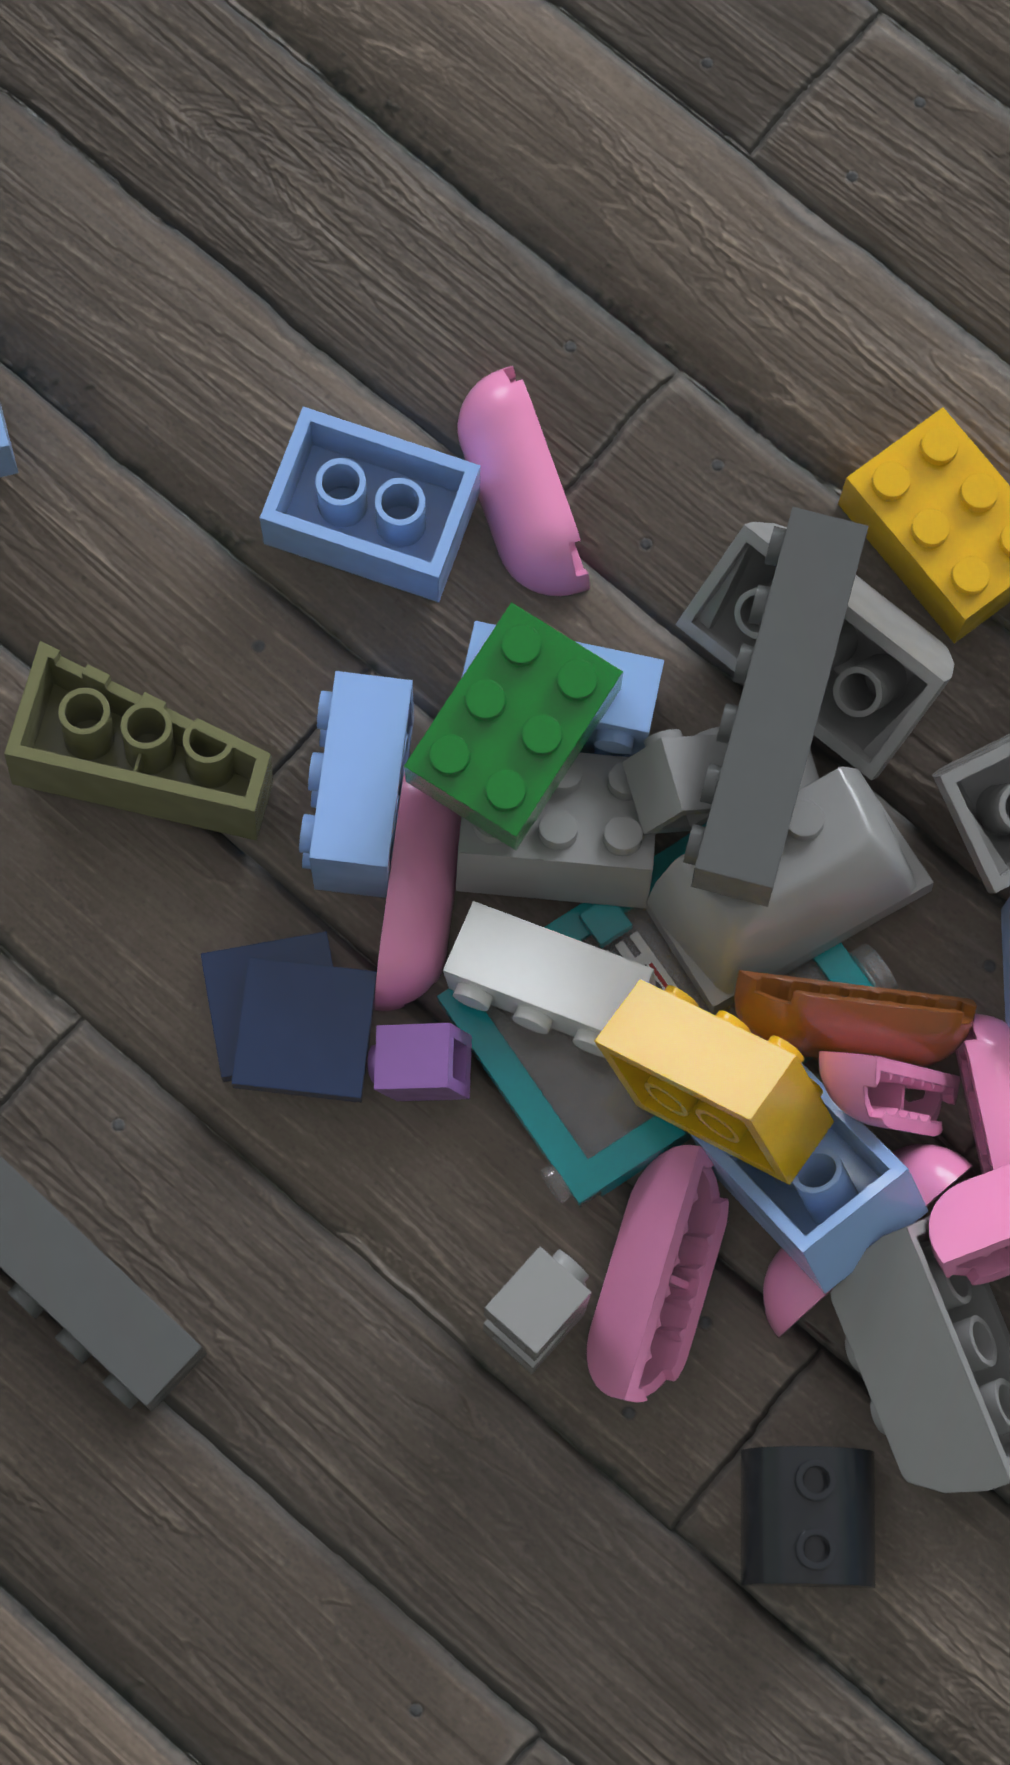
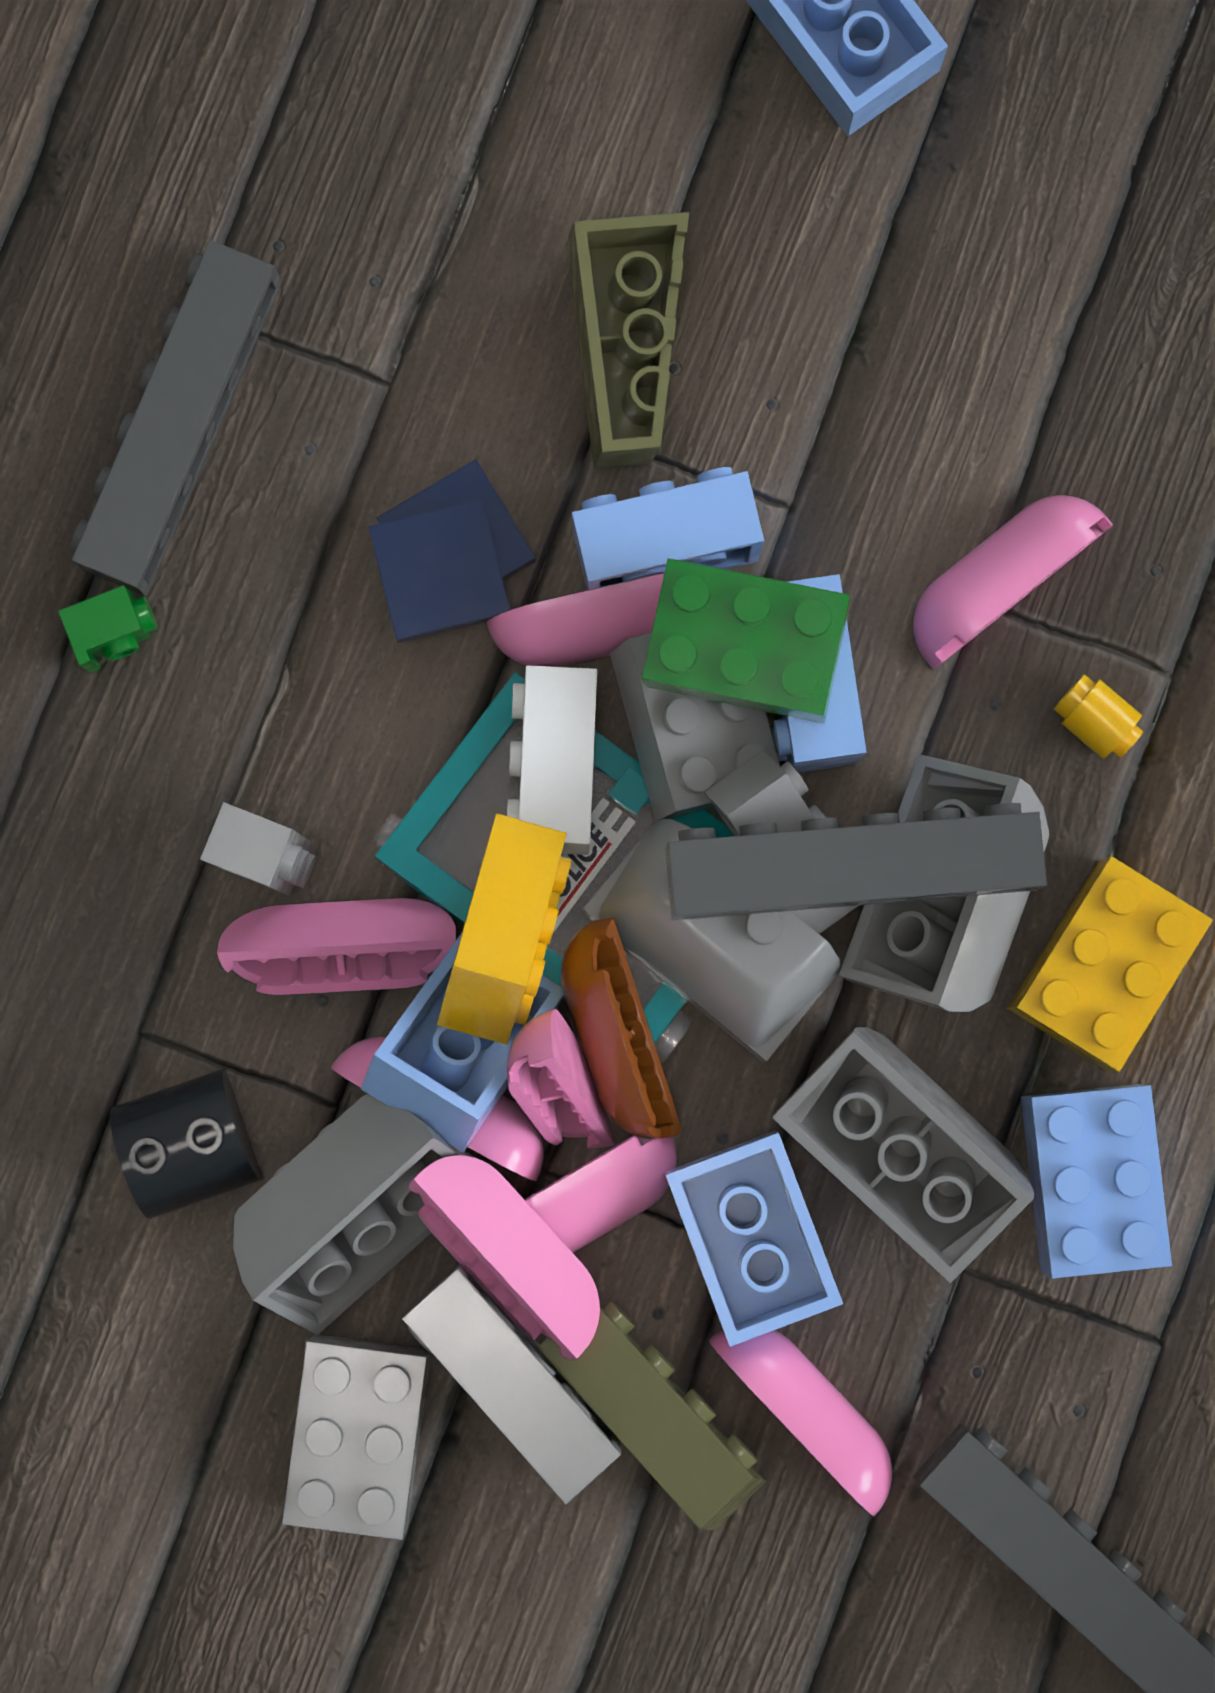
camera: 75 degrees right, 10 degrees up
(227, 1398) = (107, 626): none -> green brick
(370, 504) = (928, 447): light blue brick -> none
(421, 1062) = (447, 679): medium lavender brick -> none
(699, 446) = (1099, 717): none -> yellow brick

